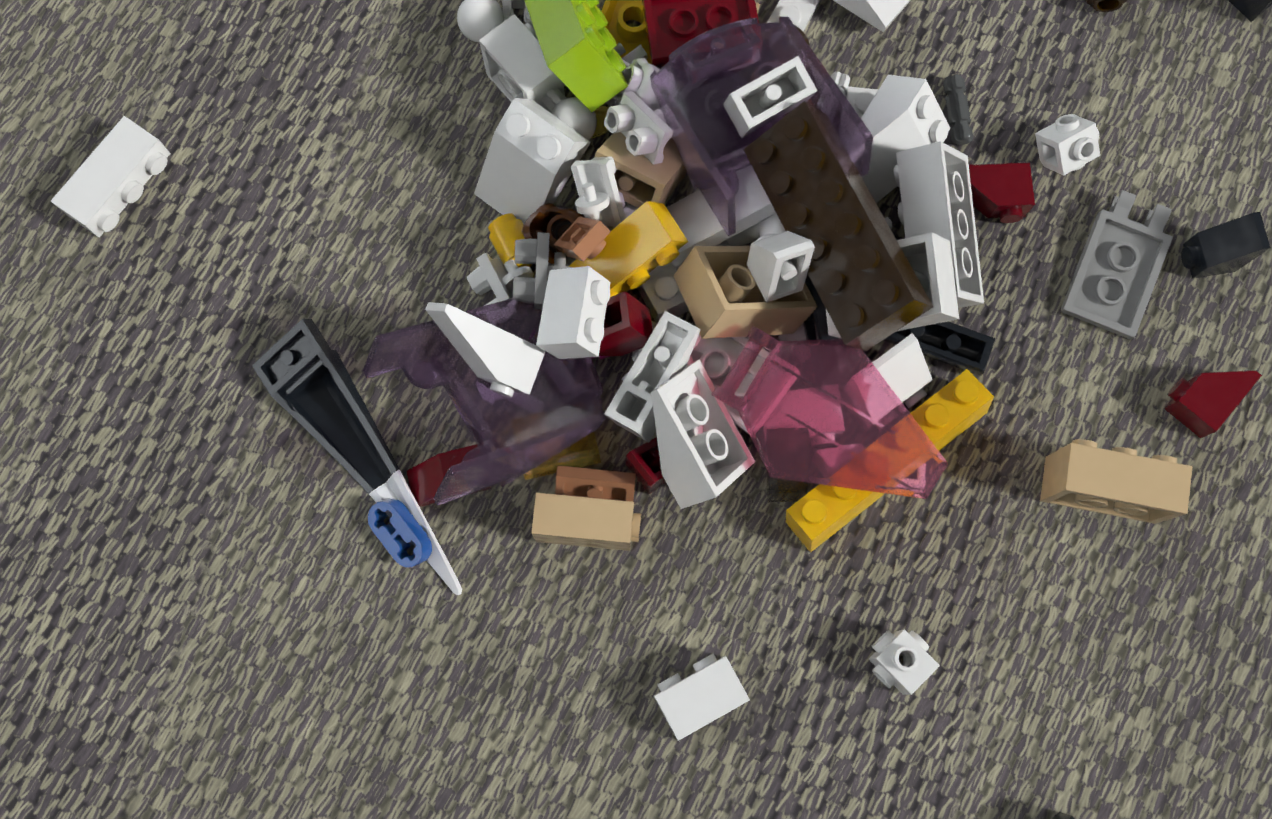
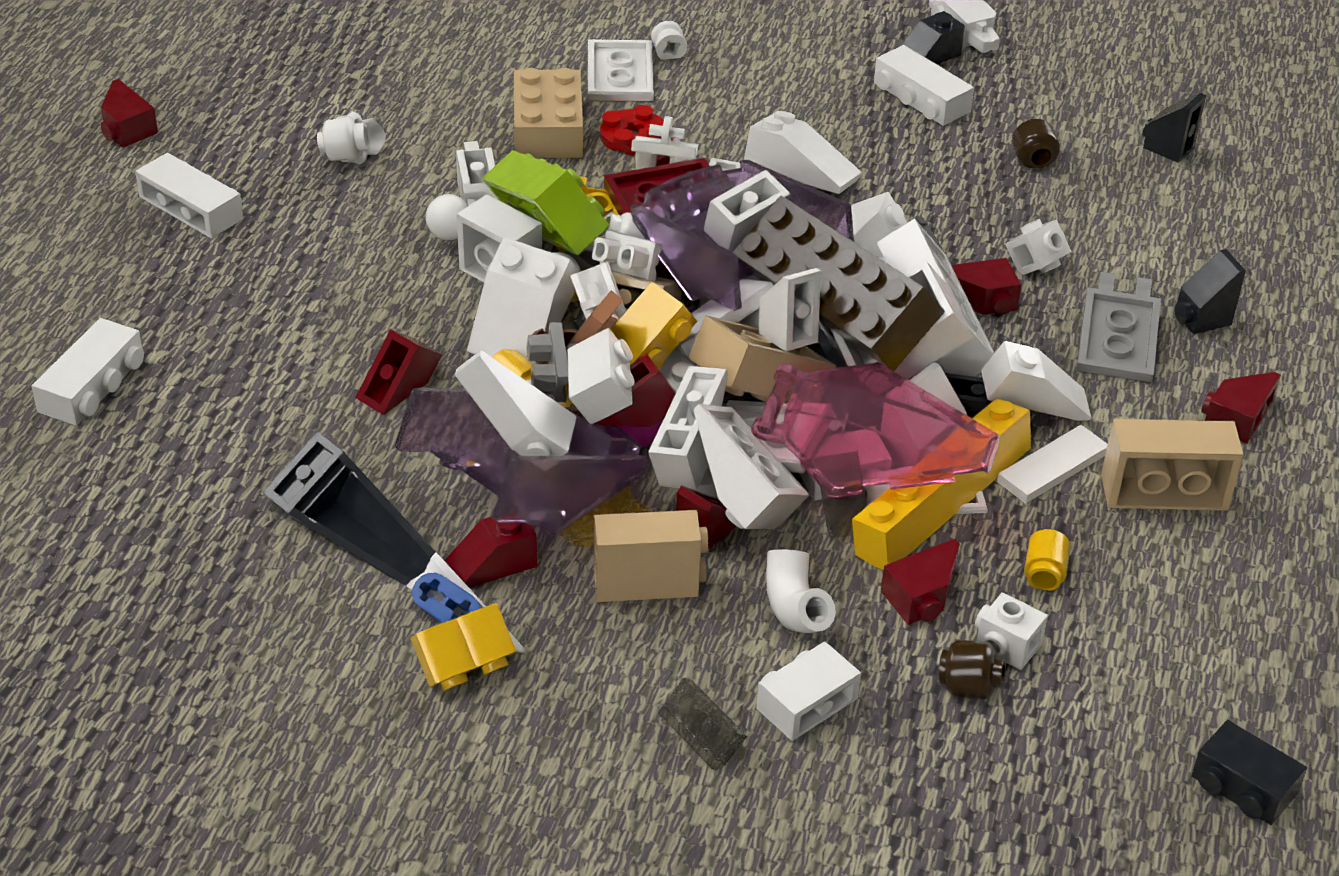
camera: 10 degrees left, 35 degrees down
(400, 222) = (397, 369): none -> dark red slope
(400, 596) = (464, 645): none -> yellow brick
(598, 718) = (702, 724): none -> clear smoke plate
(712, 583) = (790, 596): none -> white cylinder
(838, 583) = (921, 582): none -> dark red slope
(855, 697) = (971, 669): none -> dark brown head
(962, 569) = (1047, 559): none -> yellow brick
(1003, 439) = (1052, 464): none -> white tile
(1008, 352) = (1033, 382): none -> white slope

